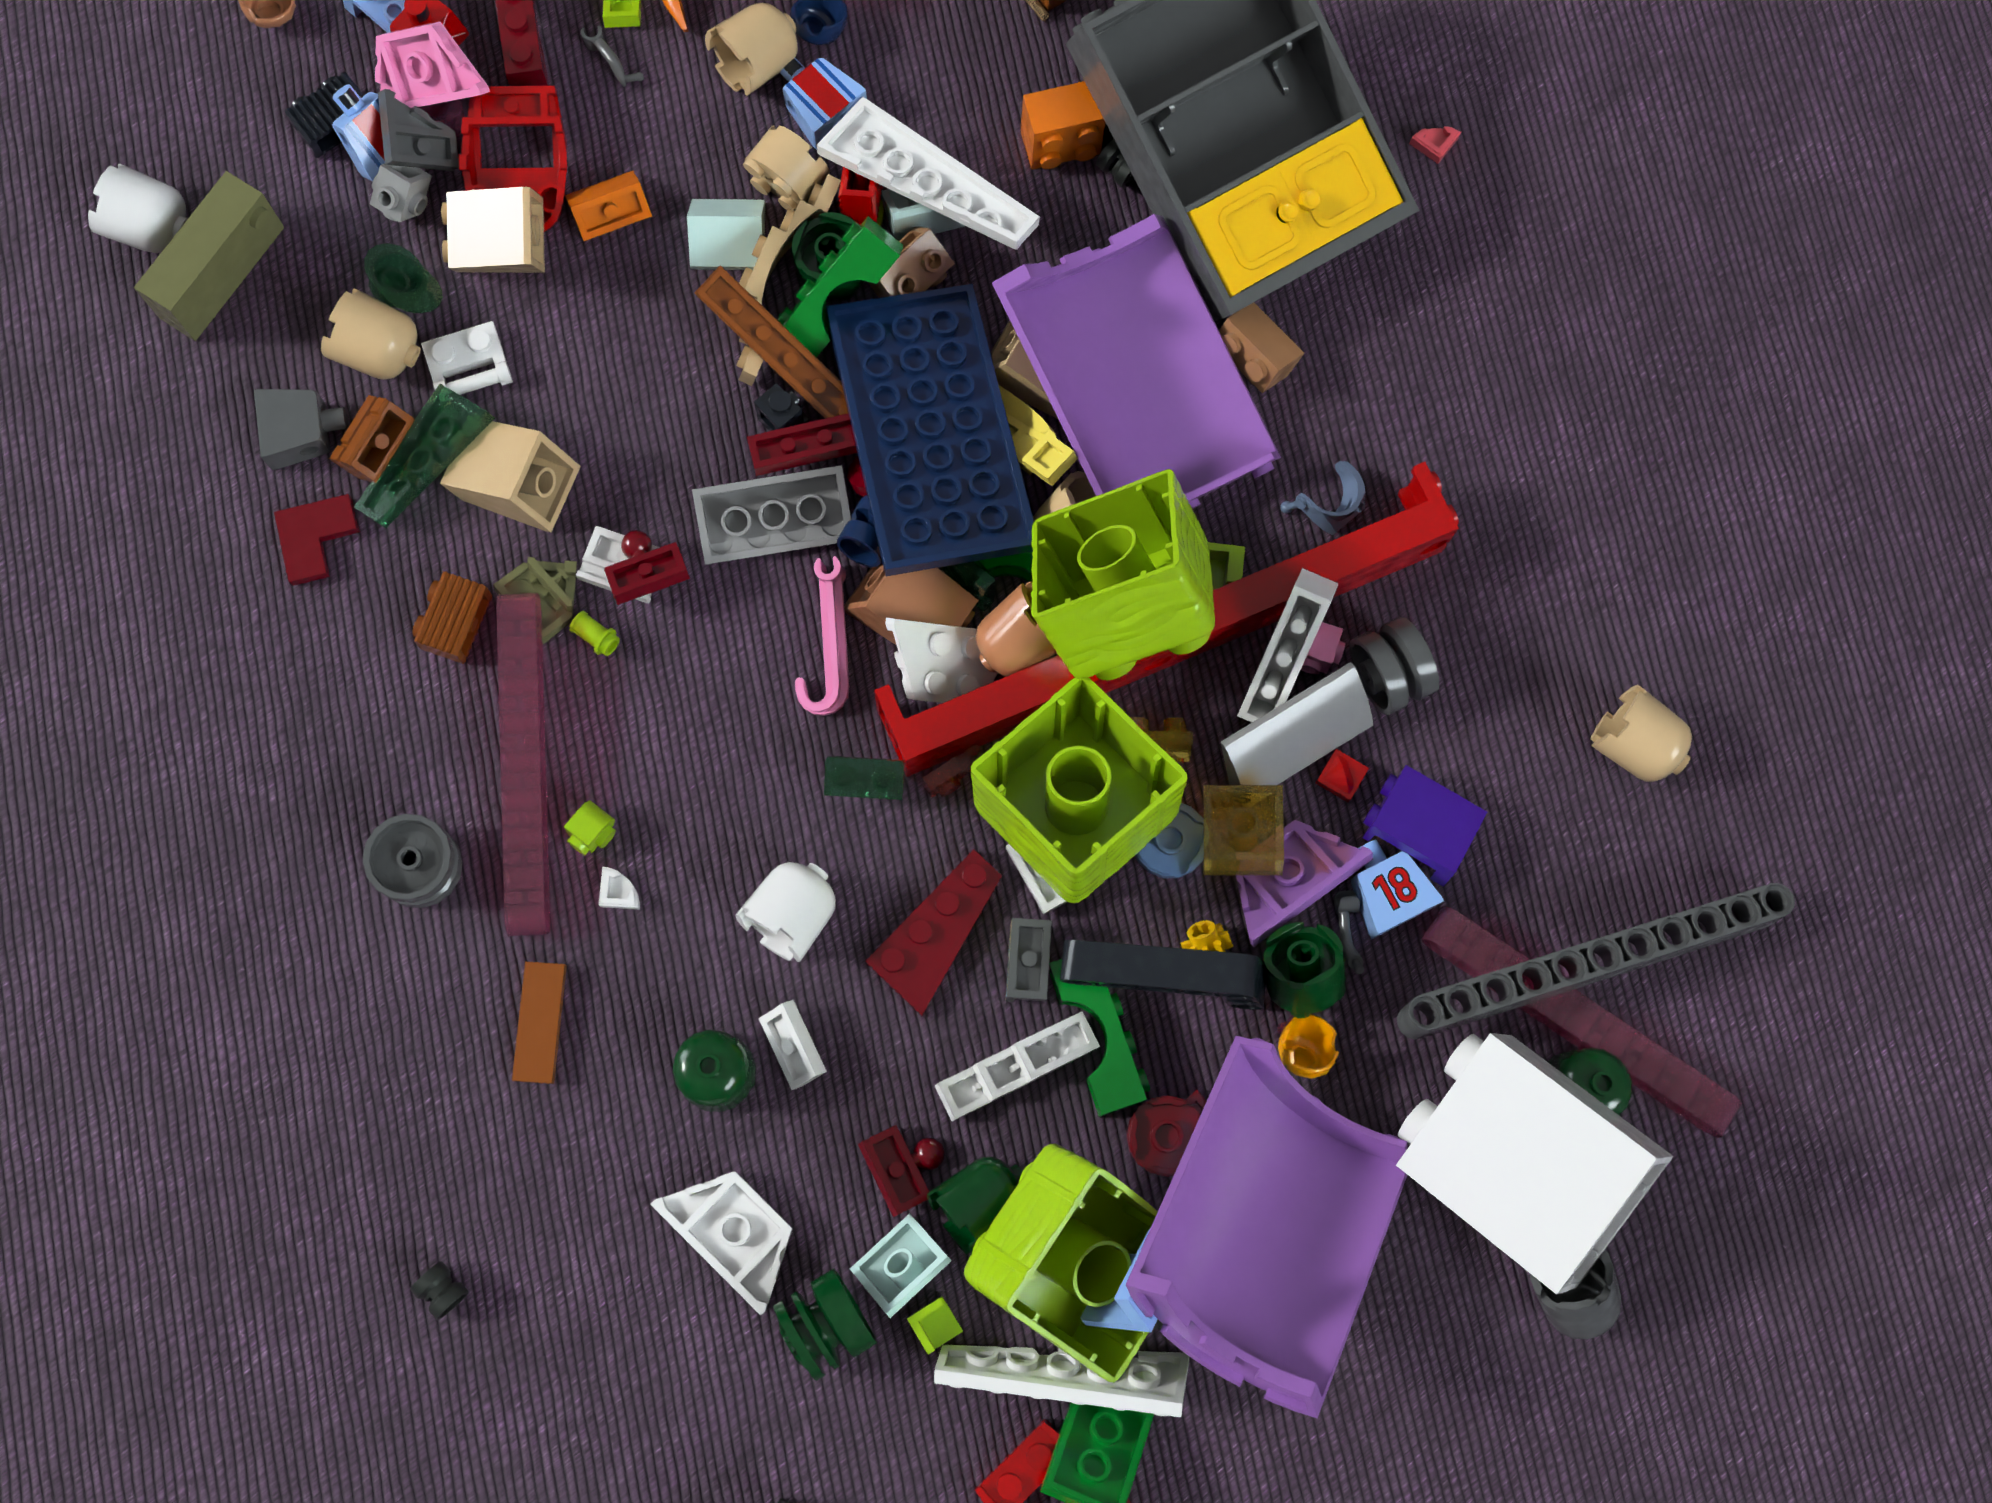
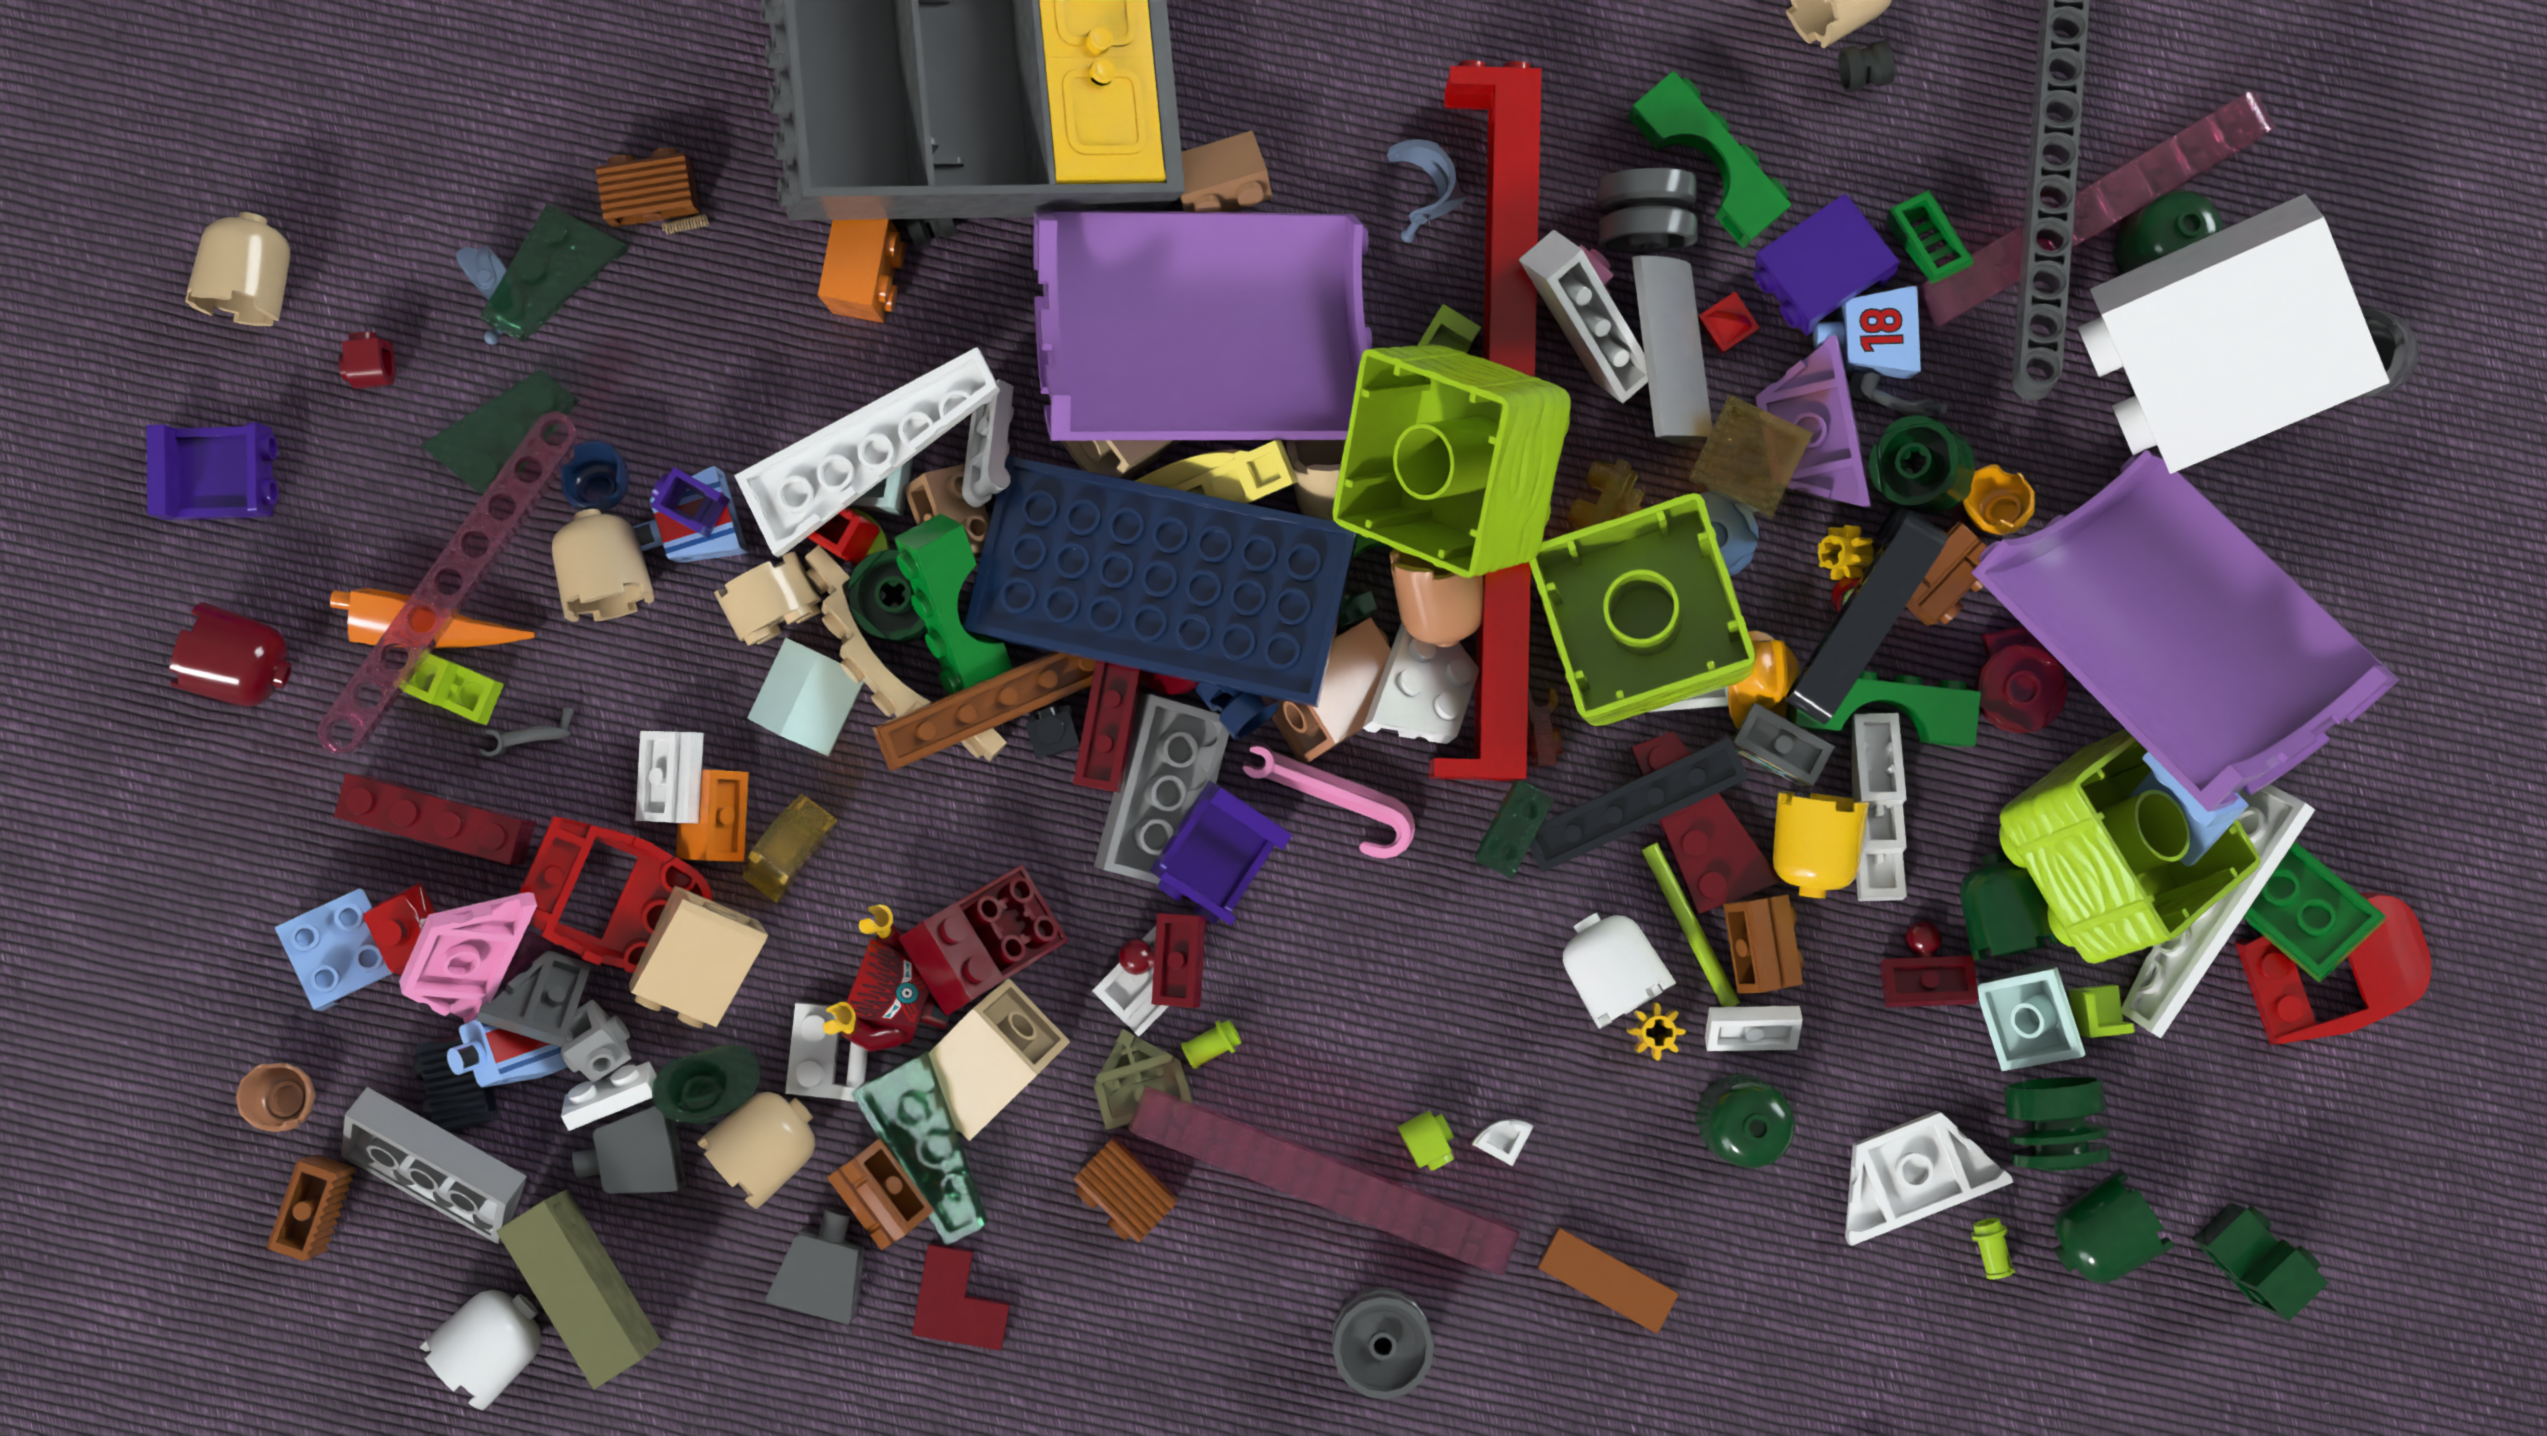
camera: 65 degrees left, 10 degrees up
(194, 53) = (310, 1207): none -> dark orange brick
(262, 115) = (431, 1164): none -> light grey slope
(328, 257) = (635, 1155): none -> dark grey torso
(355, 210) = (619, 1091): none -> white plate
(527, 377) = (887, 992): none -> torso
(600, 428) = (983, 939): none -> dark red slope
(609, 260) = (787, 847): none -> clear yellow brick
(622, 160) = (669, 776): none -> white plate
(699, 1326) = (1993, 1248): none -> lime pin
(742, 570) = (1216, 853): none -> dark purple panel
(744, 966) = (1664, 1040): none -> yellow gear
(753, 1412) = (2108, 1231): none -> dark green cylinder
(829, 64) = (672, 488): none -> dark purple window
(853, 960) = (1690, 925): none -> lime bar
(864, 1020) = (1763, 943): none -> dark orange brick
(929, 868) = (1638, 804): none -> black plate
(965, 1024) = (1818, 841): none -> yellow cylinder
(971, 269) = (988, 448): none -> white plate
(1084, 921) = (1770, 681): none -> light orange piece
(1216, 1024) = (1948, 577): none -> dark orange brick
(1477, 660) = (1676, 116): none -> green arch
(1503, 877) = (1926, 207): none -> green slope
(1603, 794) = (1866, 66): none -> pearl dark grey wheel

